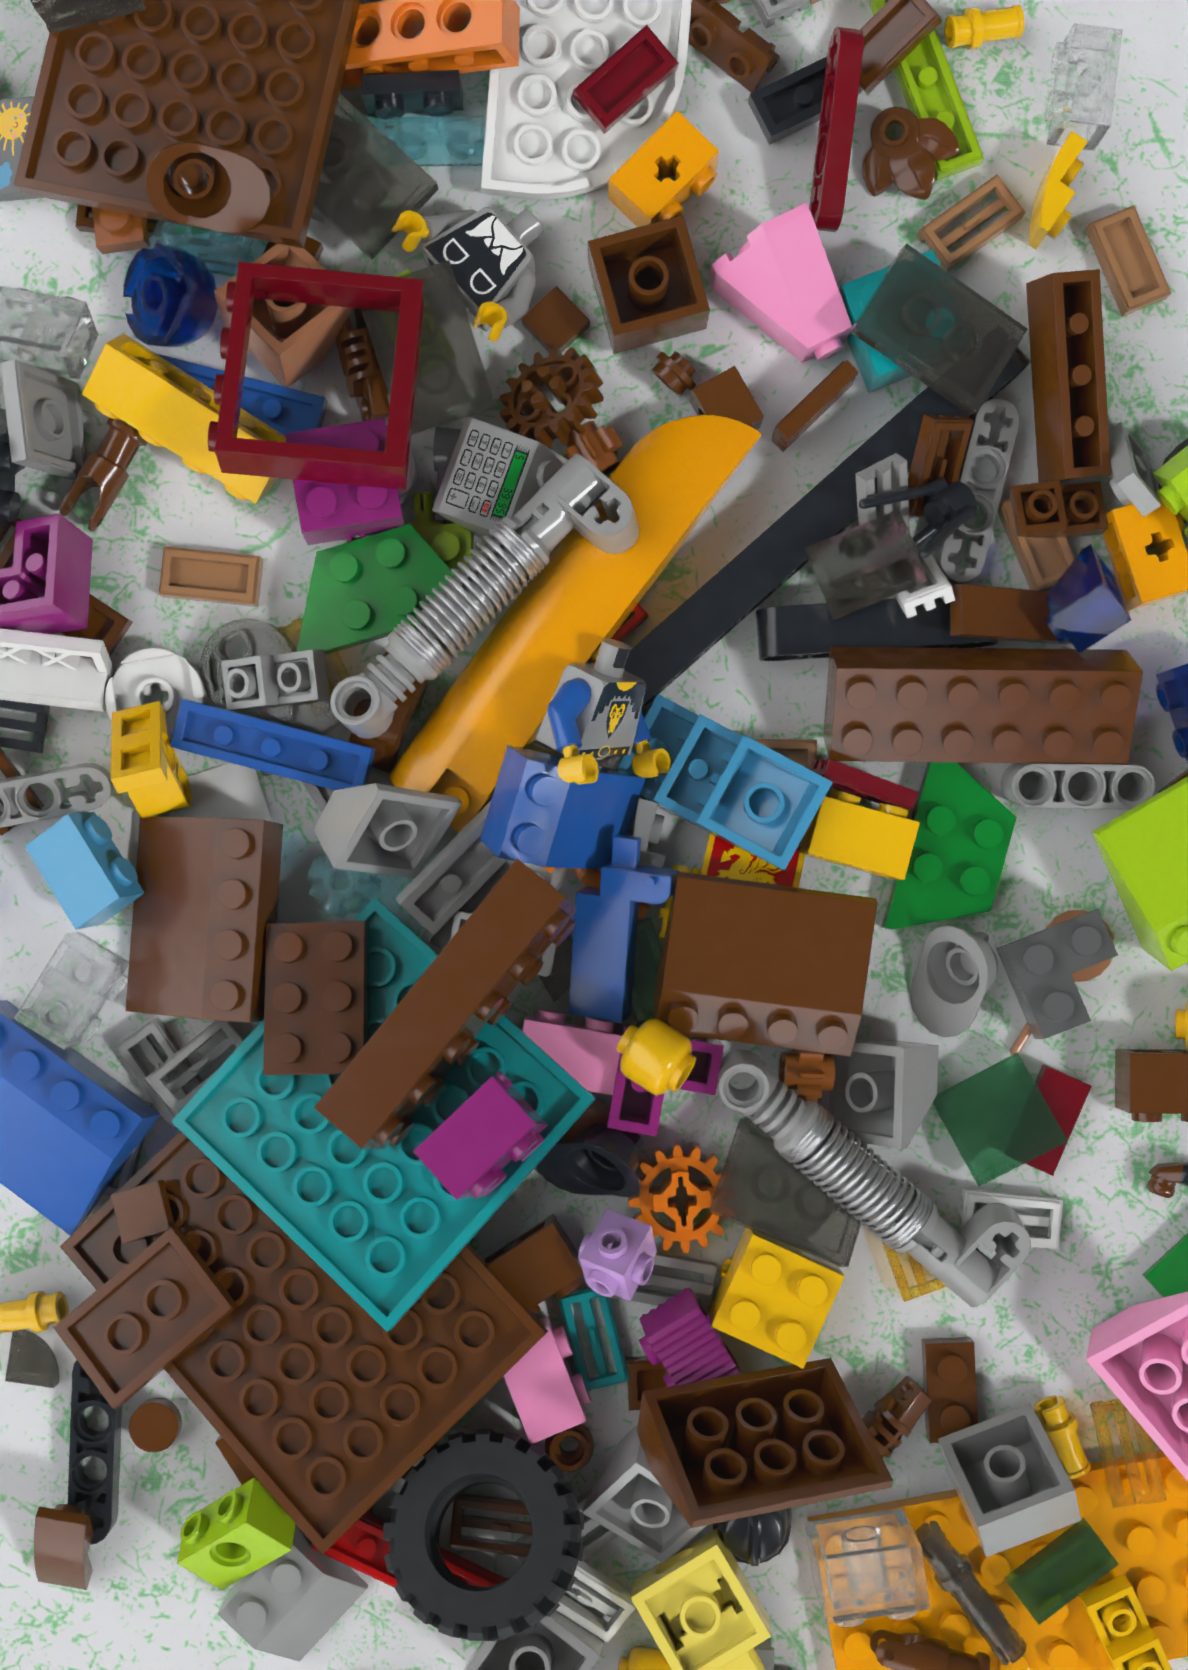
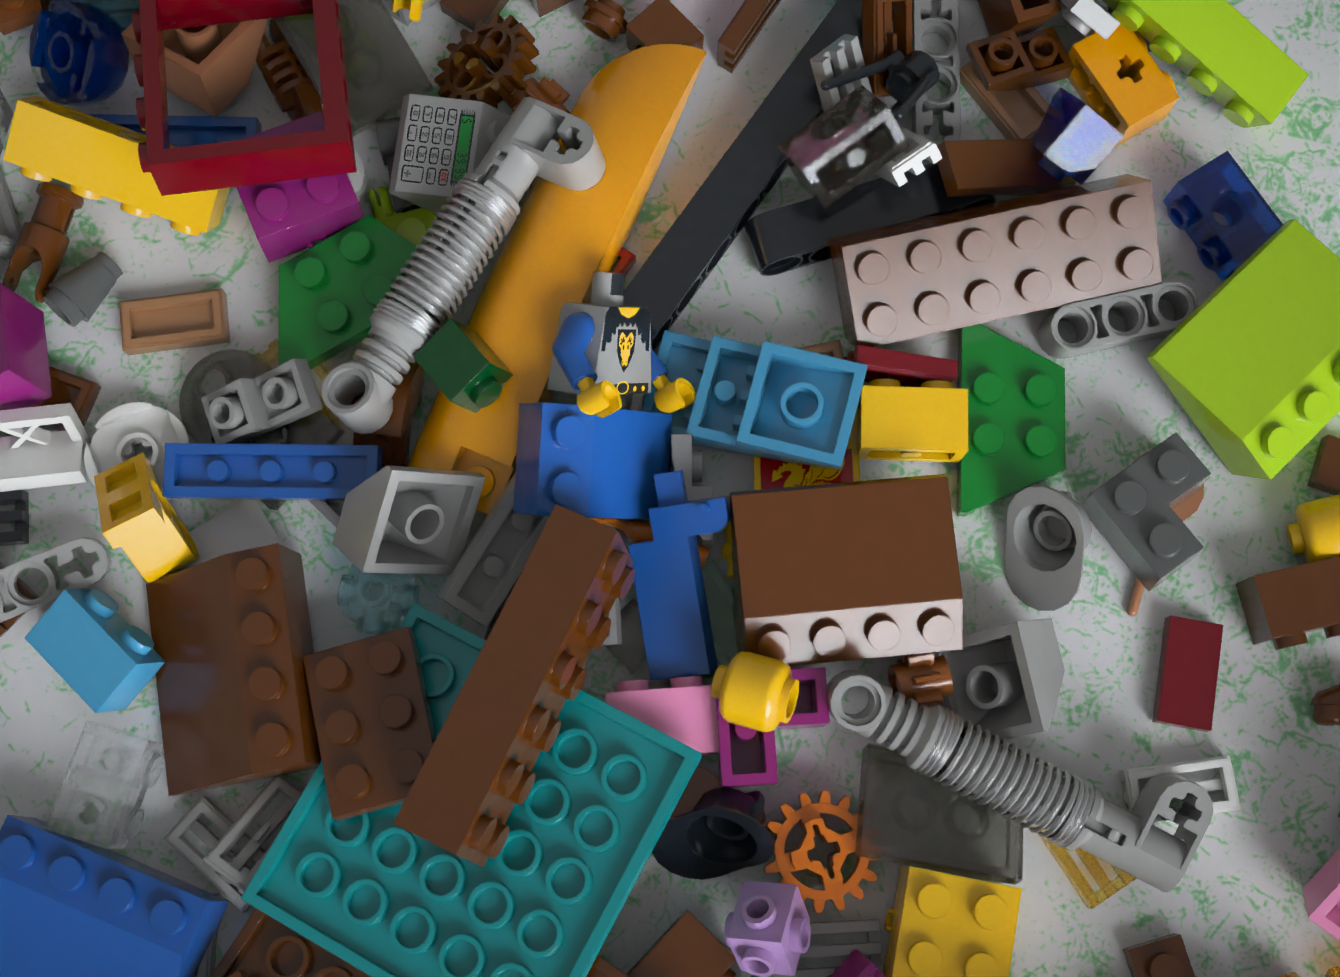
camera: 15 degrees left, 10 degrees down
(133, 527) = (83, 289): none -> dark grey cone
(464, 701) = (463, 366): none -> dark green brick
(482, 1139) = (588, 818): magenta brick -> none
(998, 1119) = (1136, 683): clear green tile -> none

